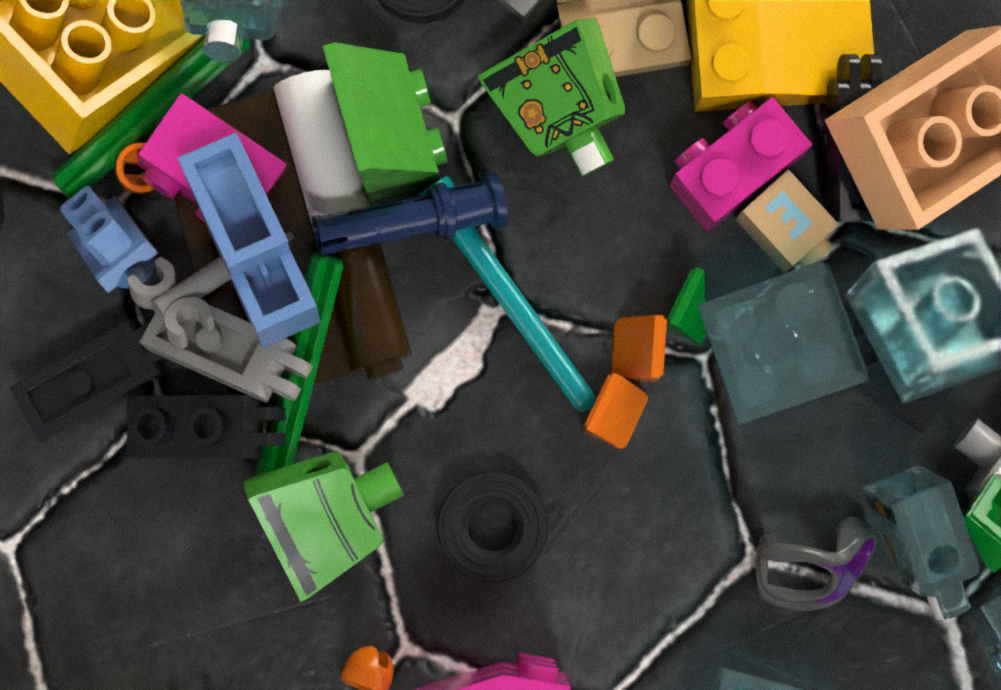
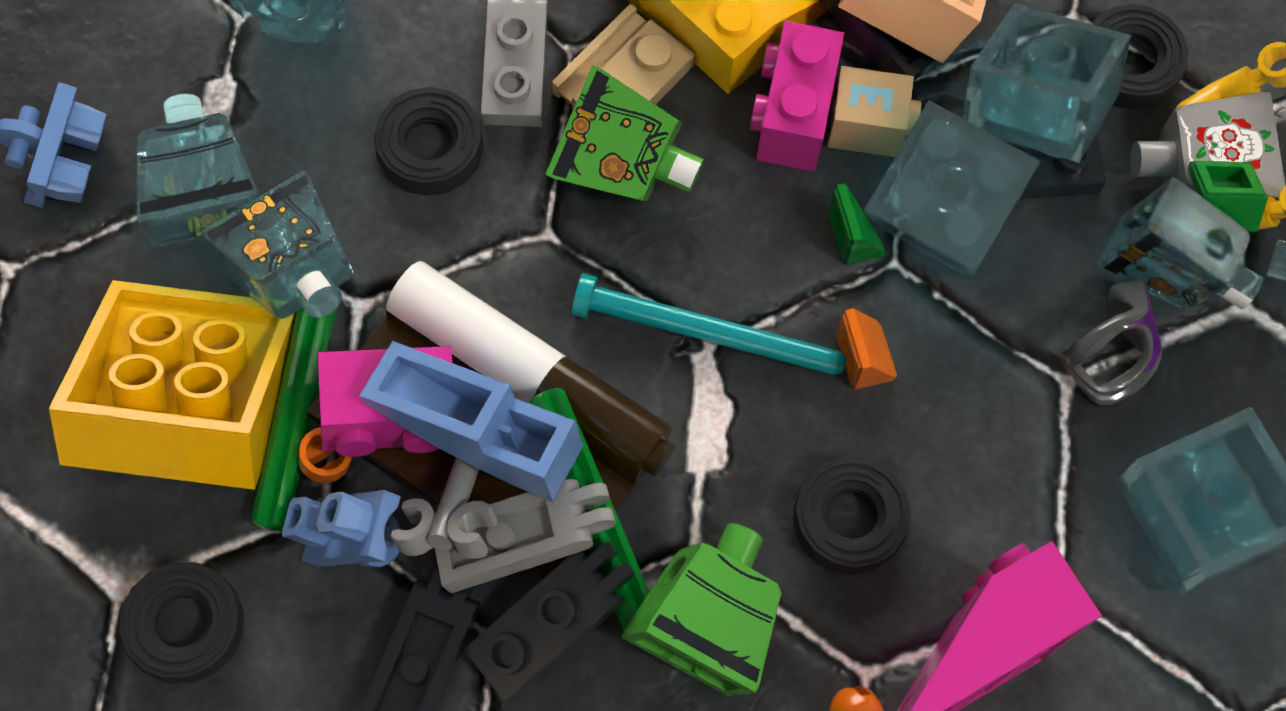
camera: 40 degrees left, 15 degrees down
(385, 119) = (498, 260): bright green slope -> none
(438, 212) = (602, 295): dark blue pin -> none
(639, 347) = (844, 283): orange slope -> none

